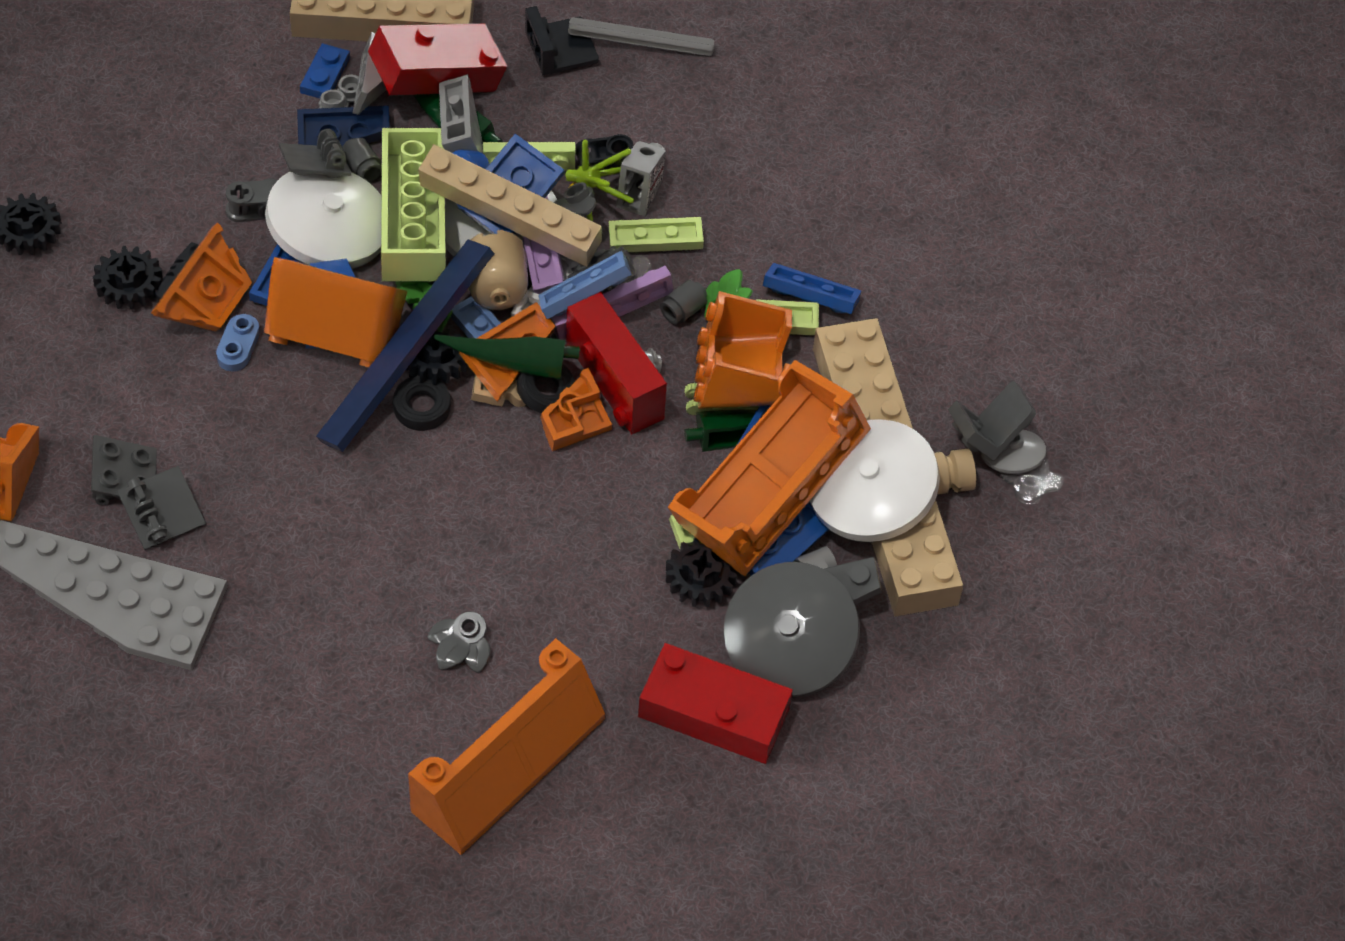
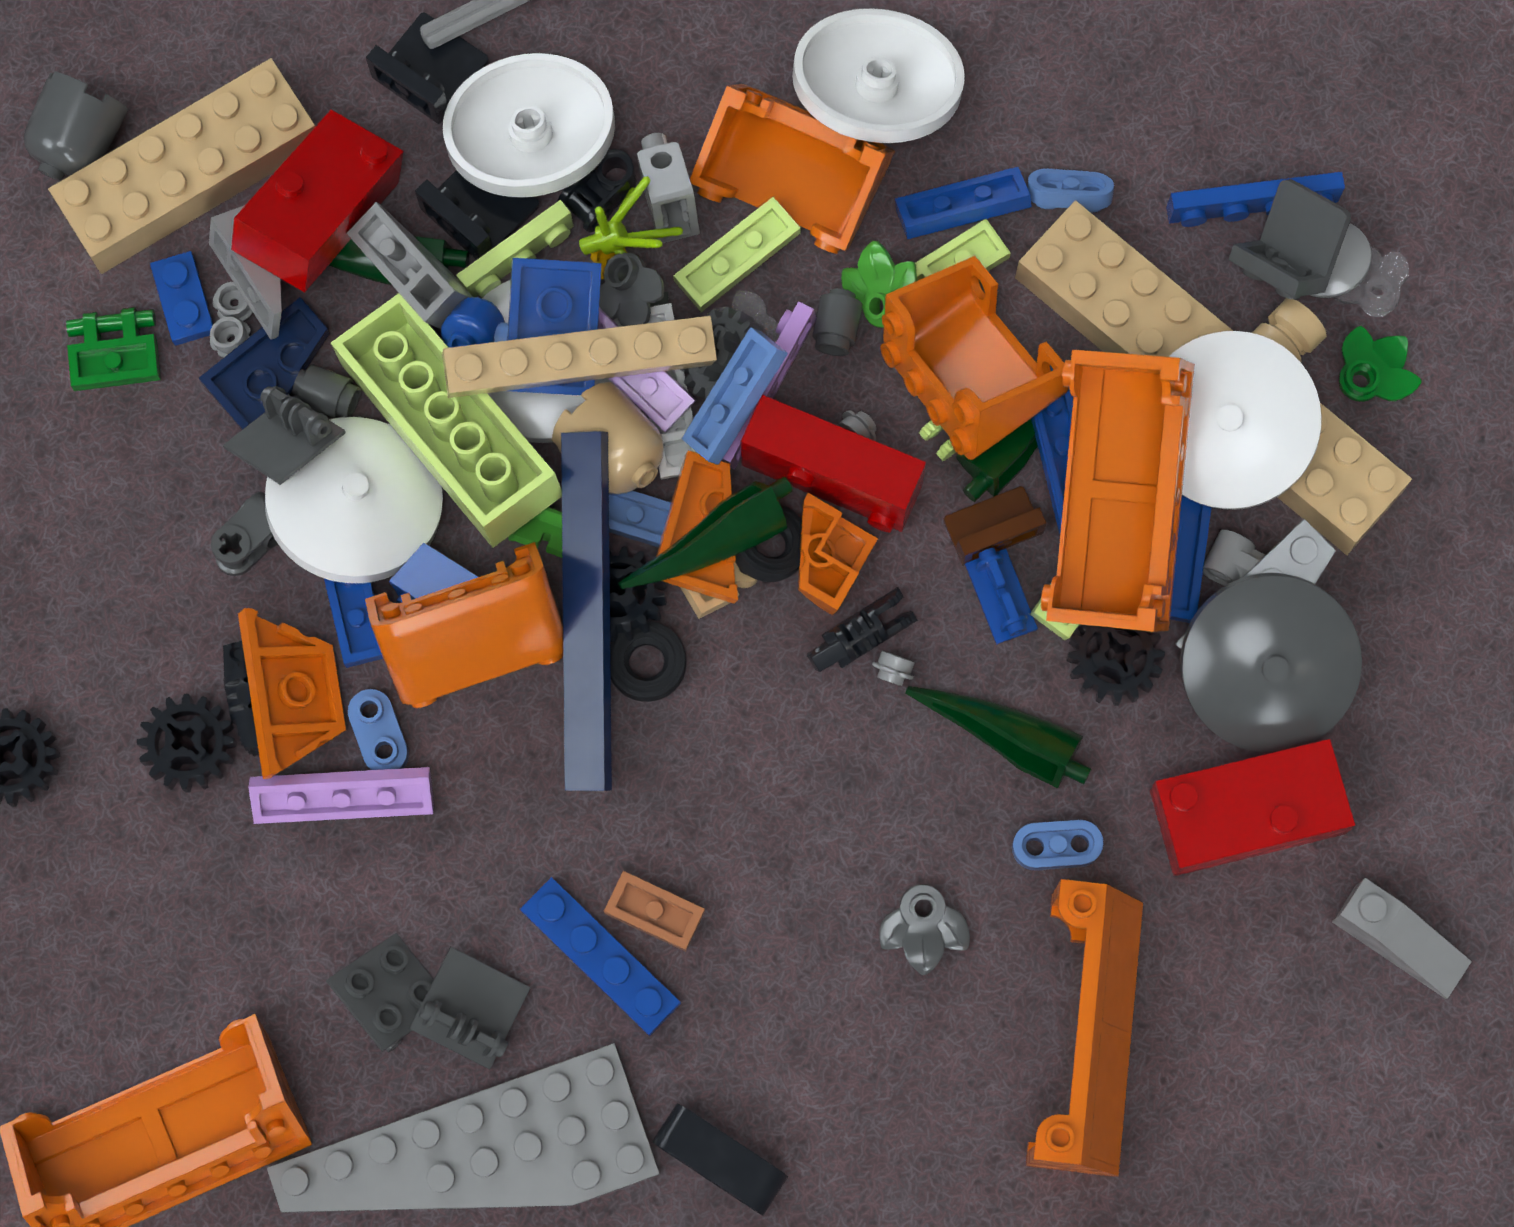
camera: 30 degrees left, 20 degrees up
(188, 356) = (341, 795): none -> lavender plate
(232, 679) = (720, 1159): none -> black beam
(259, 534) = (600, 956): none -> blue plate
(262, 78) = (114, 360): none -> green plate
(311, 528) = (654, 911): none -> nougat plate
(530, 119) = (473, 215): none -> black bracket
(558, 465) = (860, 633): none -> black hinge
(563, 496) = (894, 668): none -> light grey plate
(584, 646) = (1056, 844): none -> medium blue plate
(590, 98) = (529, 125): none -> white dish
(607, 582) = (1021, 738): none -> dark green piece
(660, 493) = (1000, 595): none -> blue hinge
(685, 462) = (994, 524): none -> reddish brown panel
(733, 211) = (780, 151): none -> orange windscreen
(749, 835) = (1401, 937): none -> light grey slope
(814, 191) = (878, 75): none -> white dish
(892, 326) = (1062, 187): none -> medium blue plate
(985, 387) = (1240, 200): none -> blue plate
(1000, 526) = (1380, 364): none -> green plate

